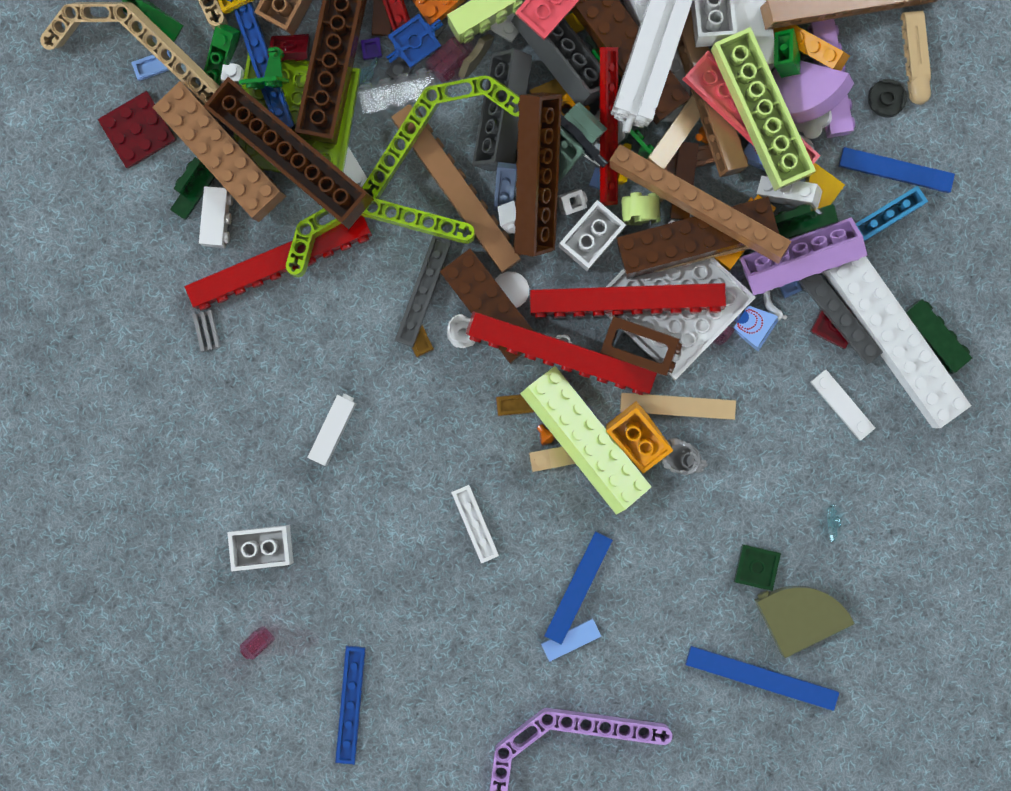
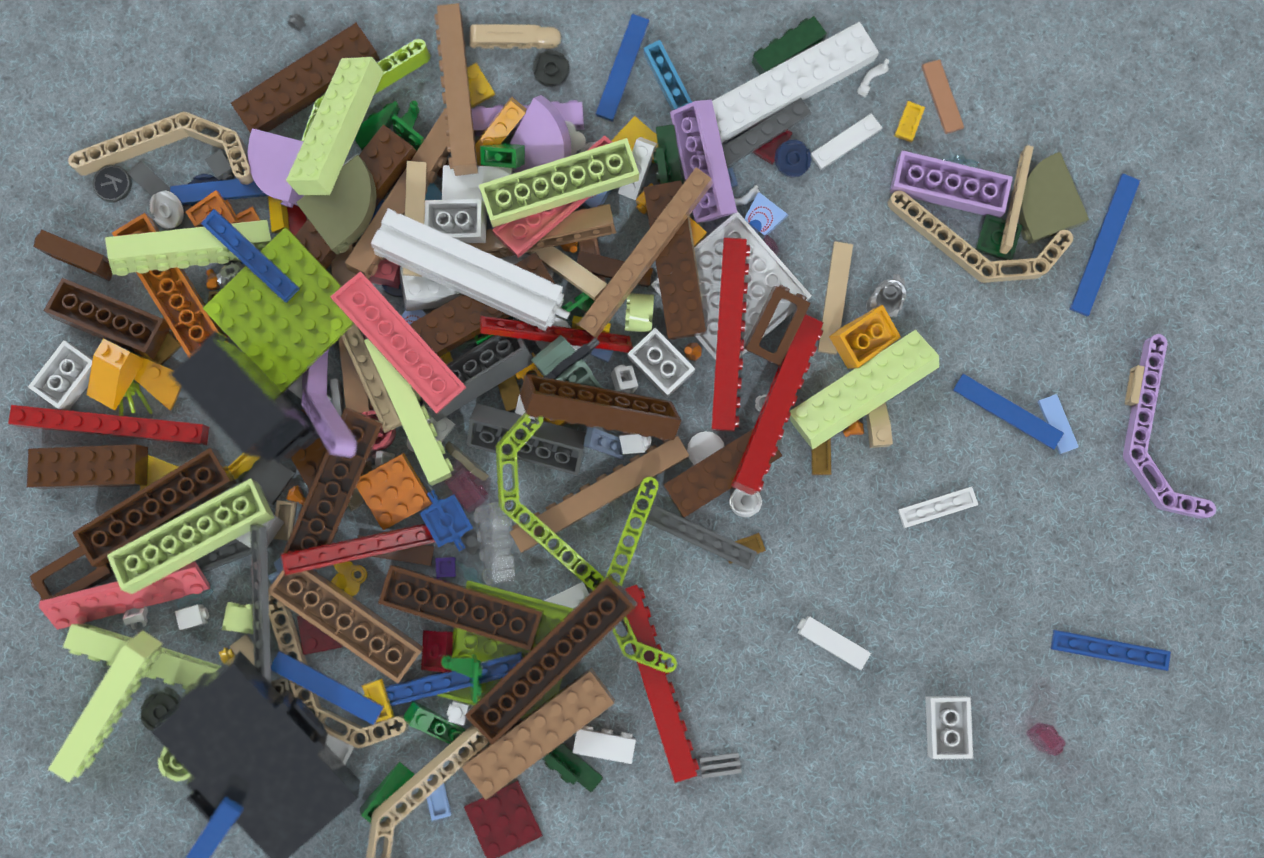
camera: 85 degrees left, 5 degrees down
(608, 268) = (693, 351): none -> orange rock
(617, 714) = (1134, 385): none -> tan tile
(739, 535) = (967, 250): none -> tan beam
(798, 581) = (1016, 199): none -> tan tile
(807, 513) = (951, 184): none -> lavender brick
(818, 351) = (793, 158): none -> dark blue tile
(859, 27) = (478, 85): none -> yellow plate
(870, 468) = (909, 121): none -> yellow plate
(901, 500) = (942, 96): none -> nougat tile
(921, 430) = (878, 70): none -> white piece

